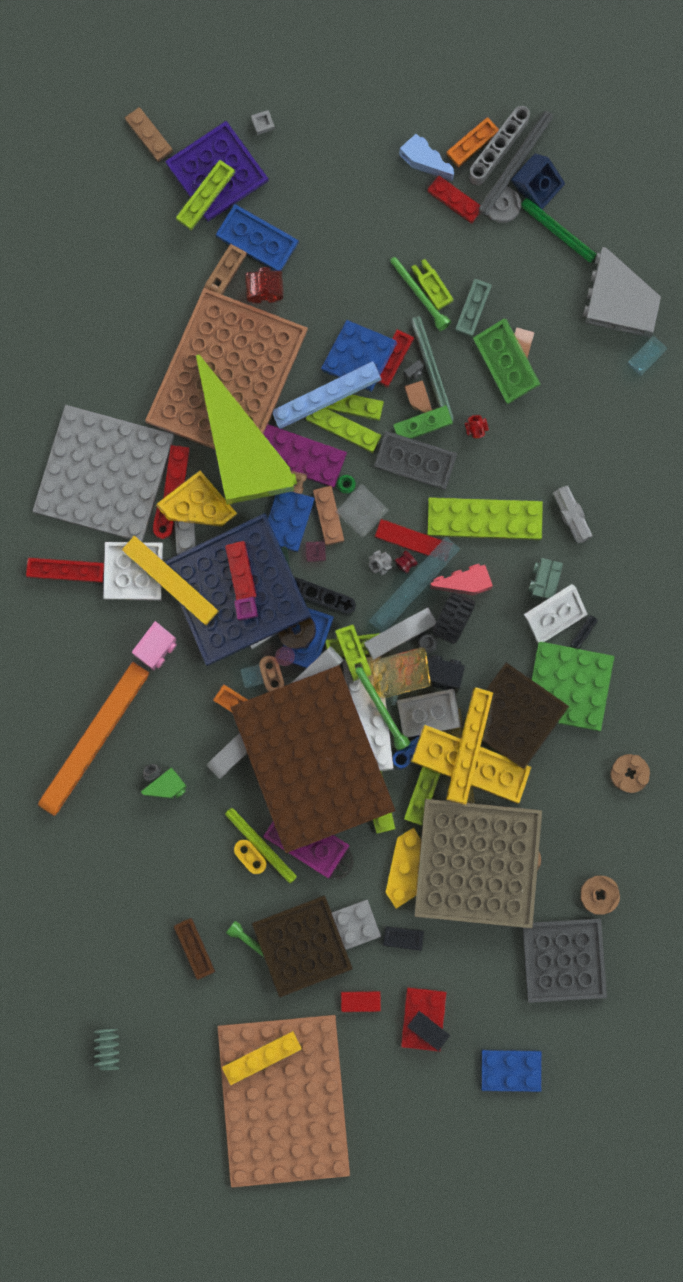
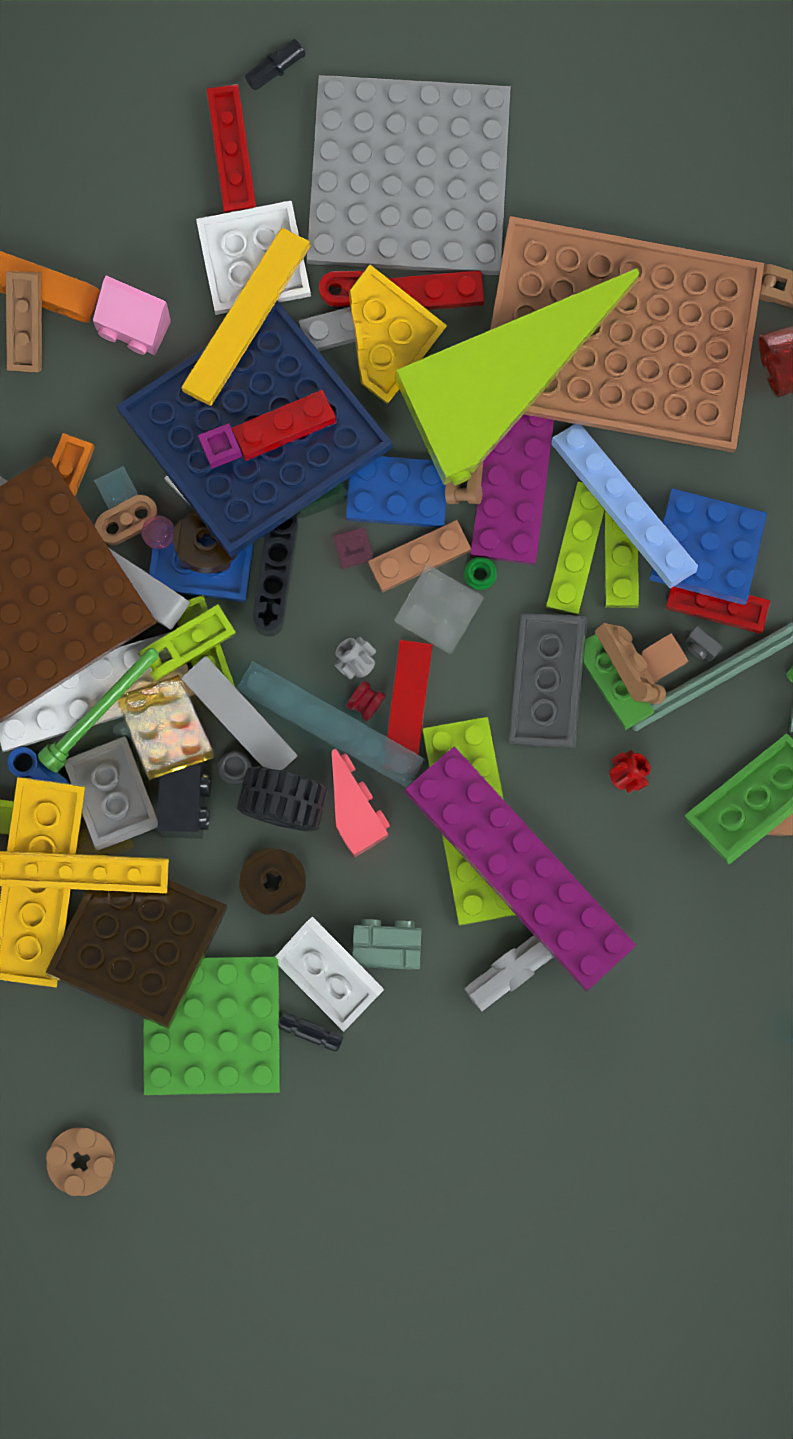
camera: 75 degrees right, 0 degrees up
(19, 534) = (275, 65): none -> black axle
(143, 708) = (24, 321): none -> medium nougat plate
(418, 412) = (629, 664): none -> medium nougat plate
(500, 625) = (254, 876): none -> dark brown plate
(518, 497) = (520, 868): none -> magenta plate

